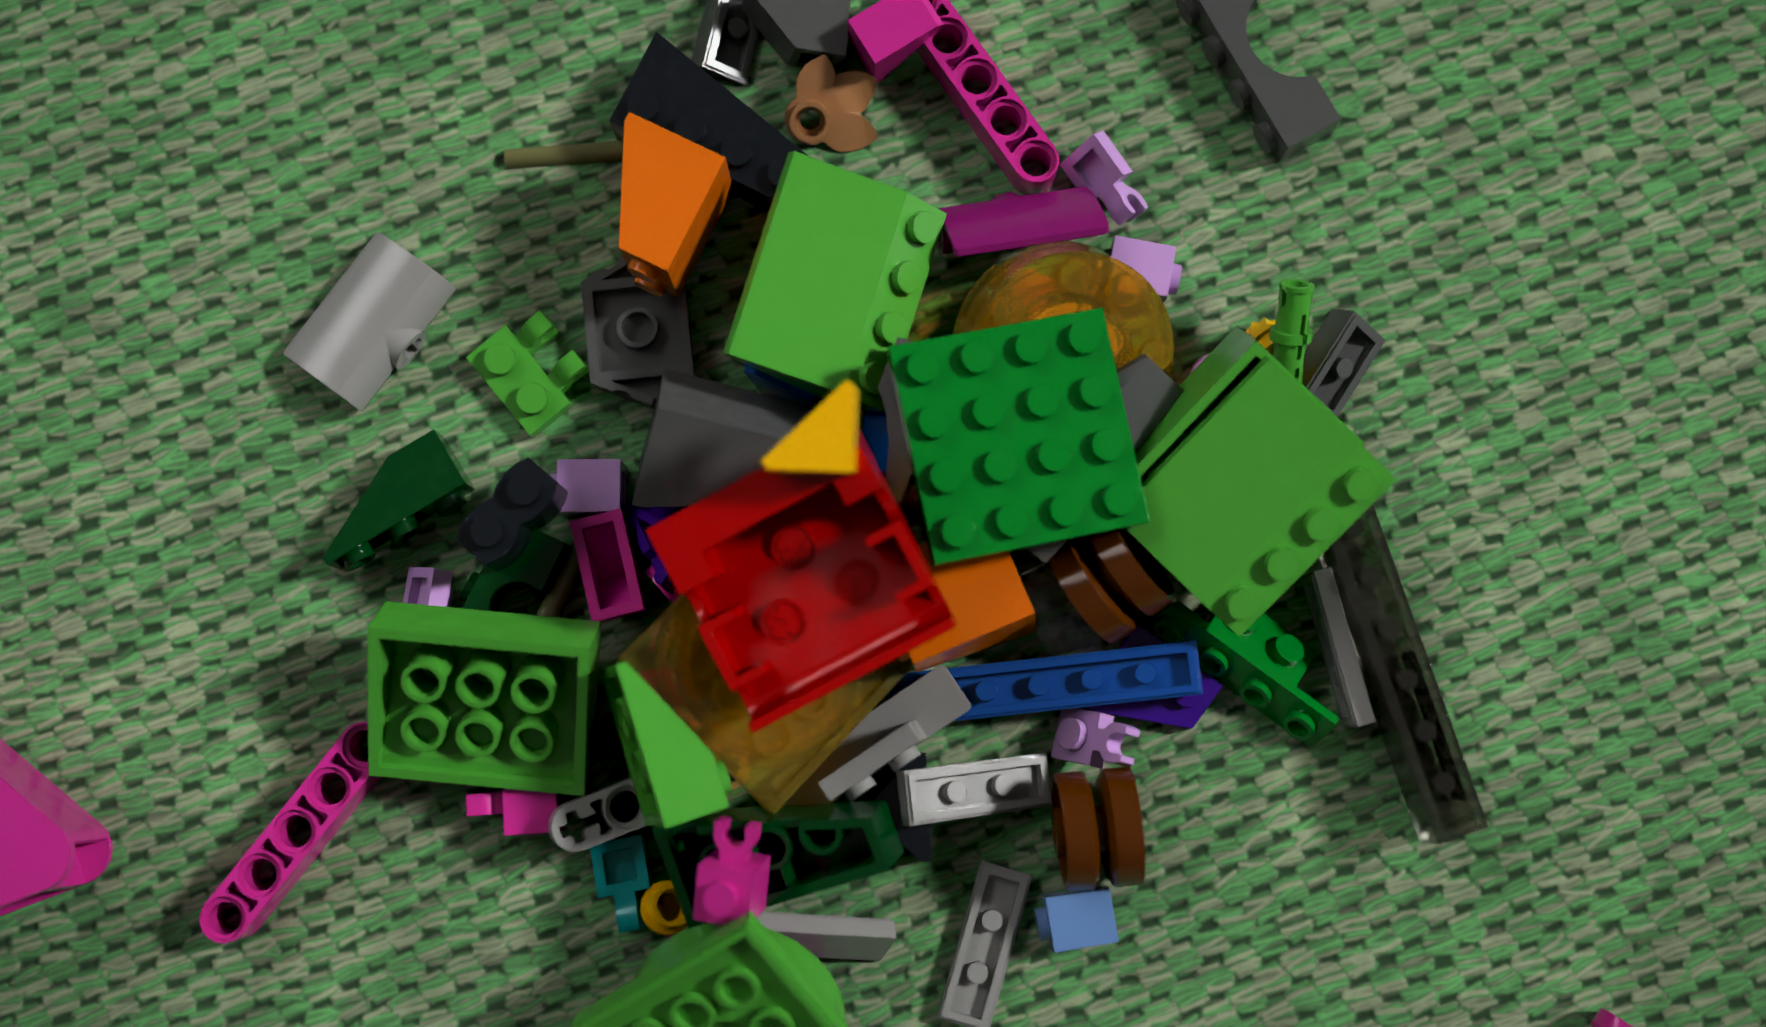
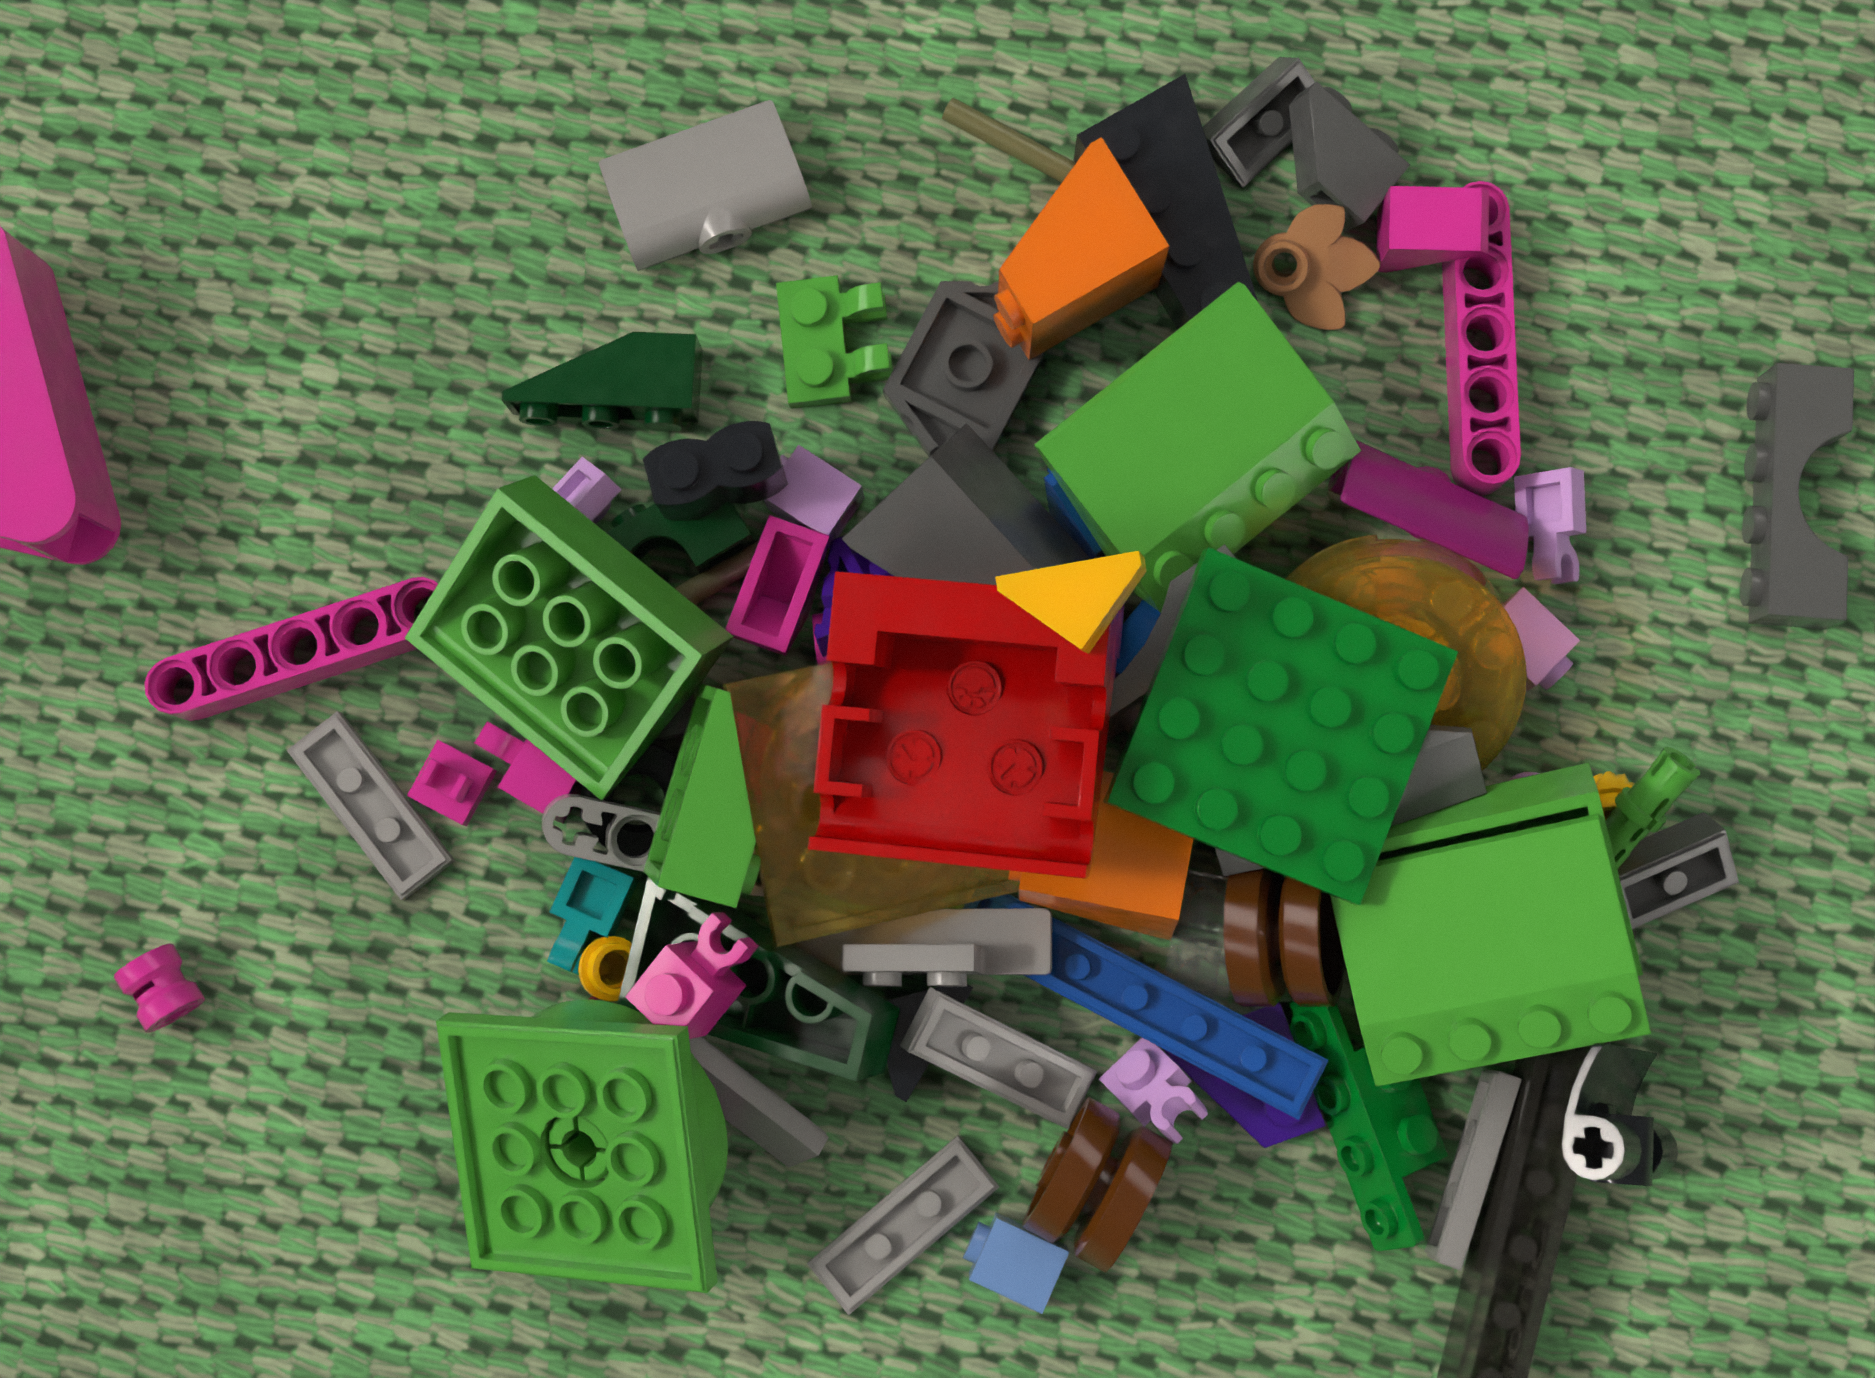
camera: 40 degrees right, 0 degrees up
(421, 908) = (371, 805): none -> light grey tile
(468, 854) = (452, 783): none -> dark pink tile
(1407, 568) = (1599, 1129): none -> black panel

